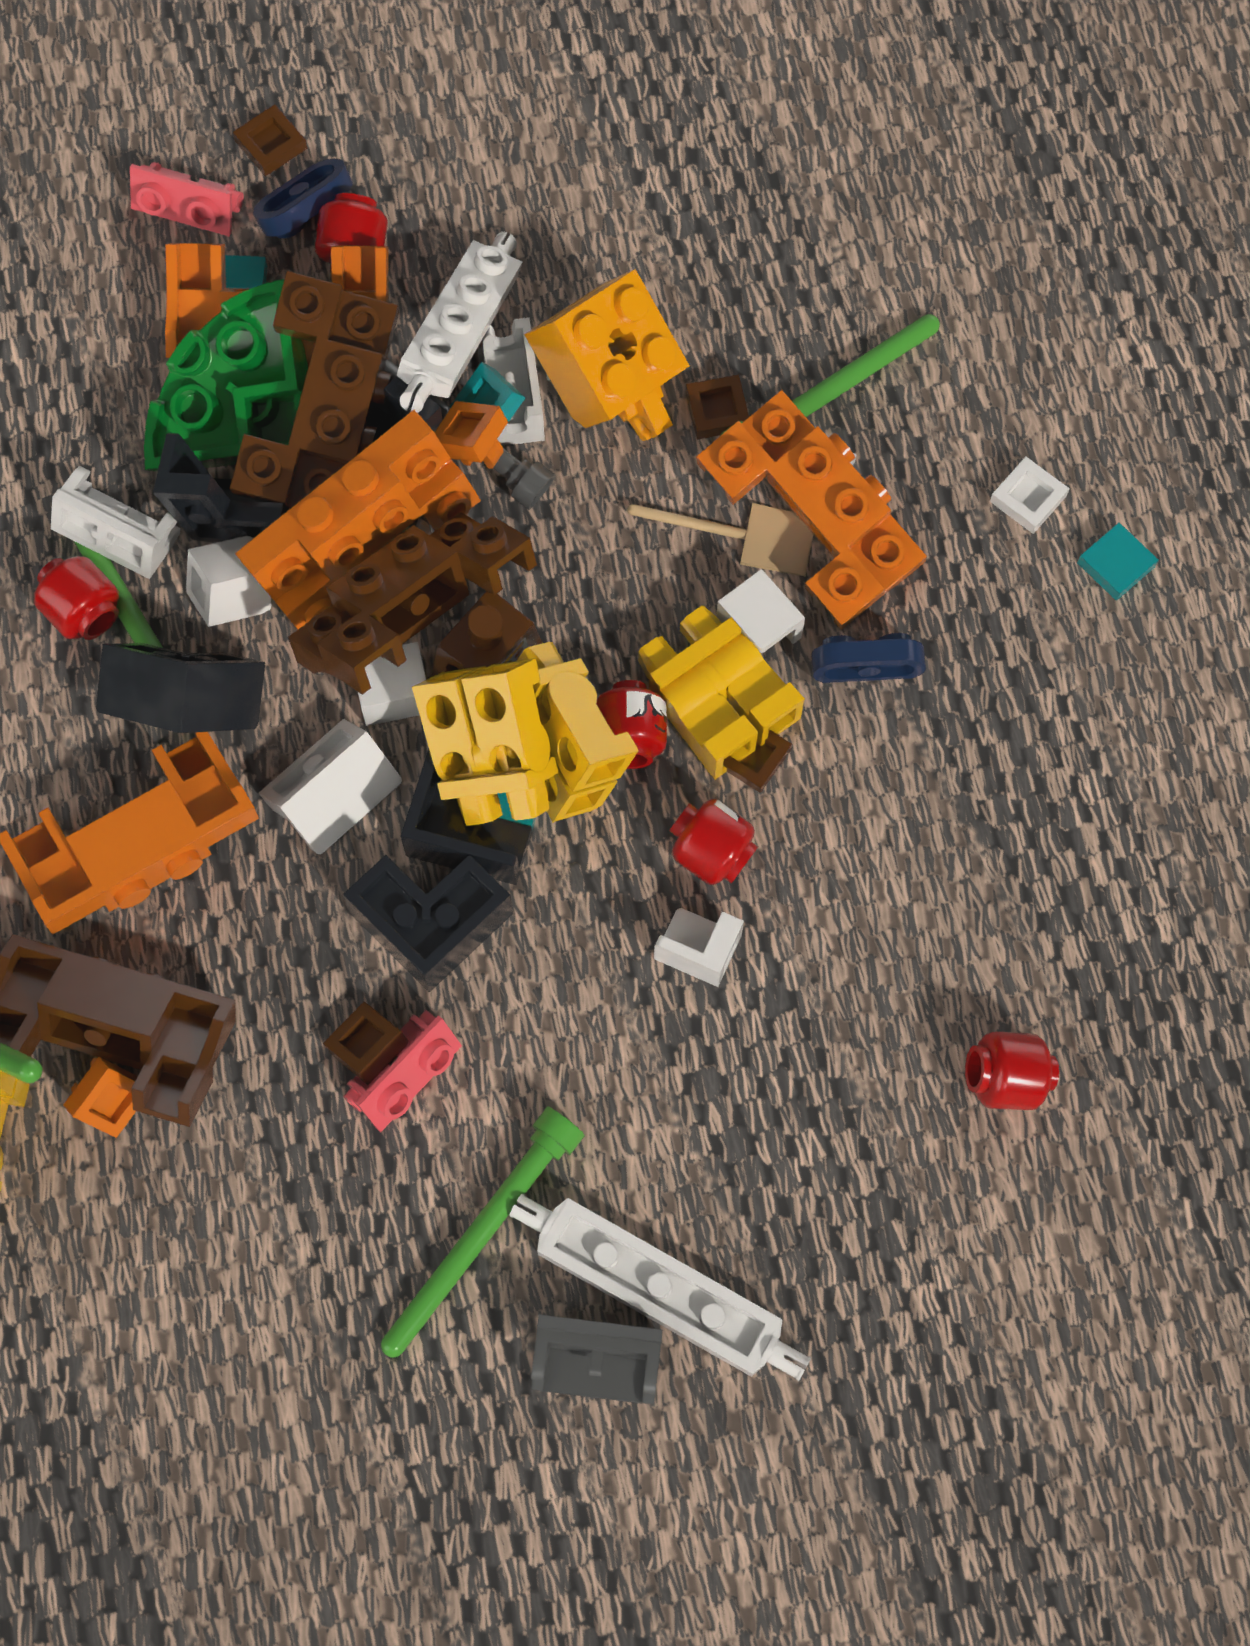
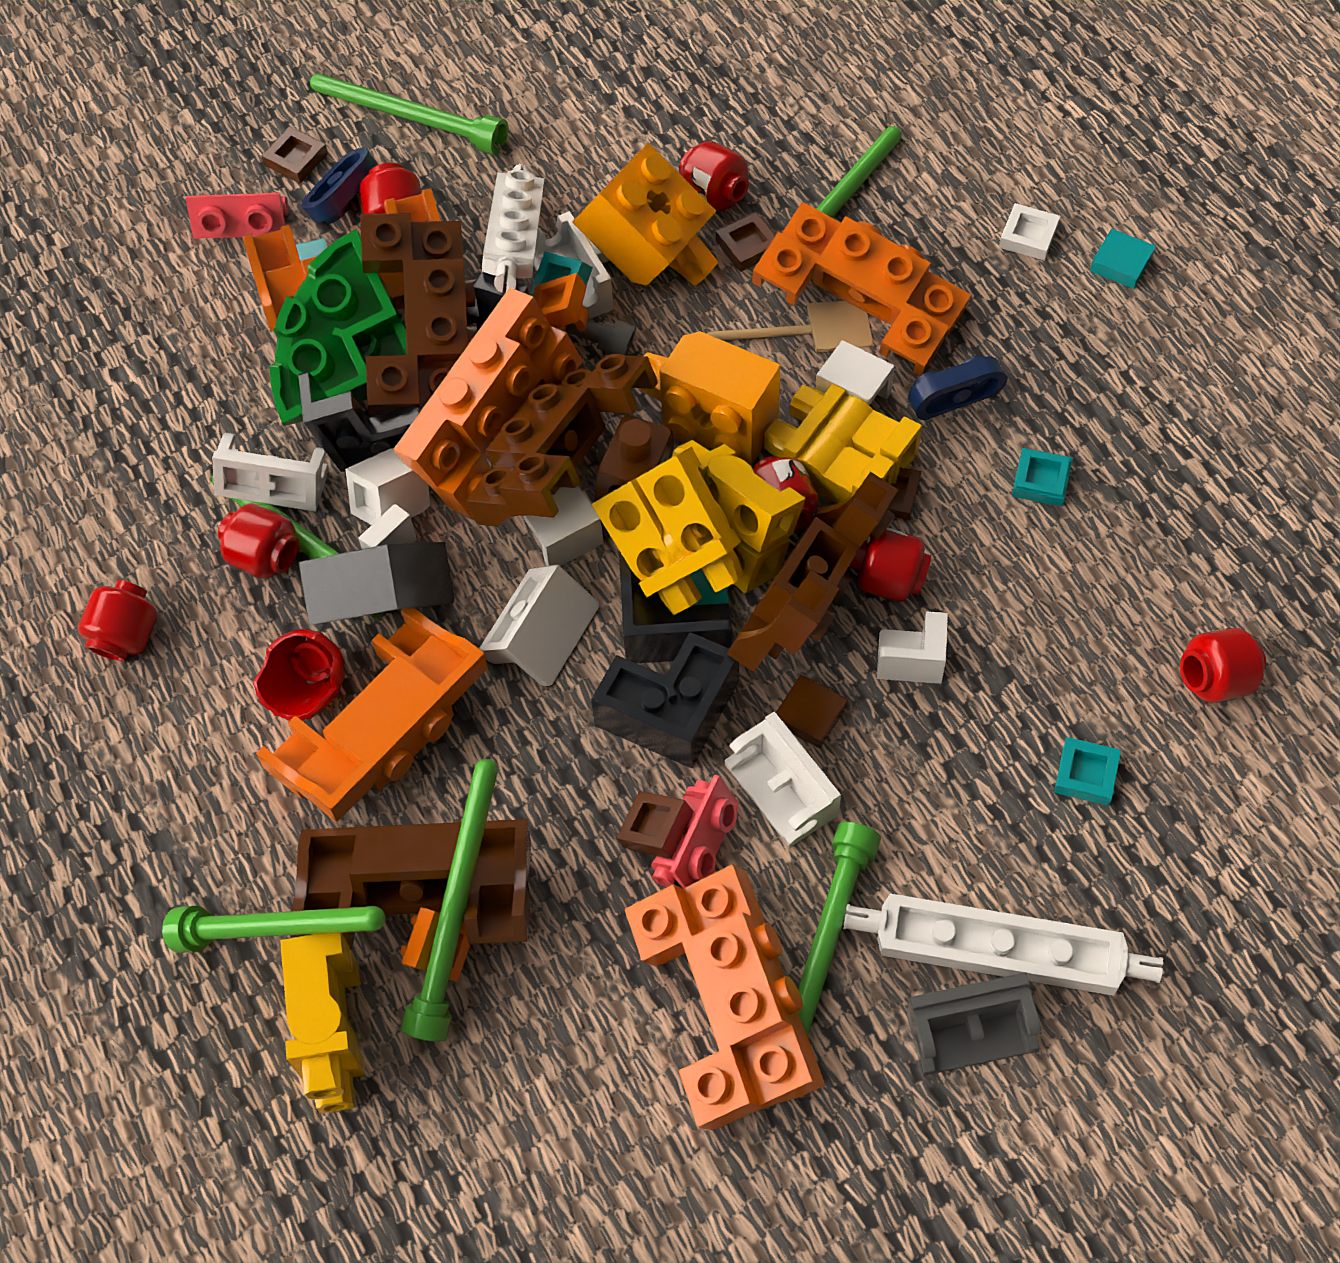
camera: 15 degrees left, 10 degrees down
(52, 763) = (287, 666): none -> red hair
(73, 1165) = (428, 1014): none -> bright green piece
(210, 634) = (391, 528): none -> white tile
(381, 1245) = (744, 992): none -> orange bracket
(478, 177) = (480, 131): none -> bright green piece
(509, 1040) = (783, 780): none -> white hinge
(570, 973) = (811, 711): none -> reddish brown tile
(600, 591) = (717, 394): none -> light orange hinge
(625, 828) = (814, 575): none -> reddish brown bracket
(708, 317) = (716, 174): none -> red head
(825, 1134) = (1087, 771): none -> teal tile
(918, 791) = (1042, 477): none -> teal tile

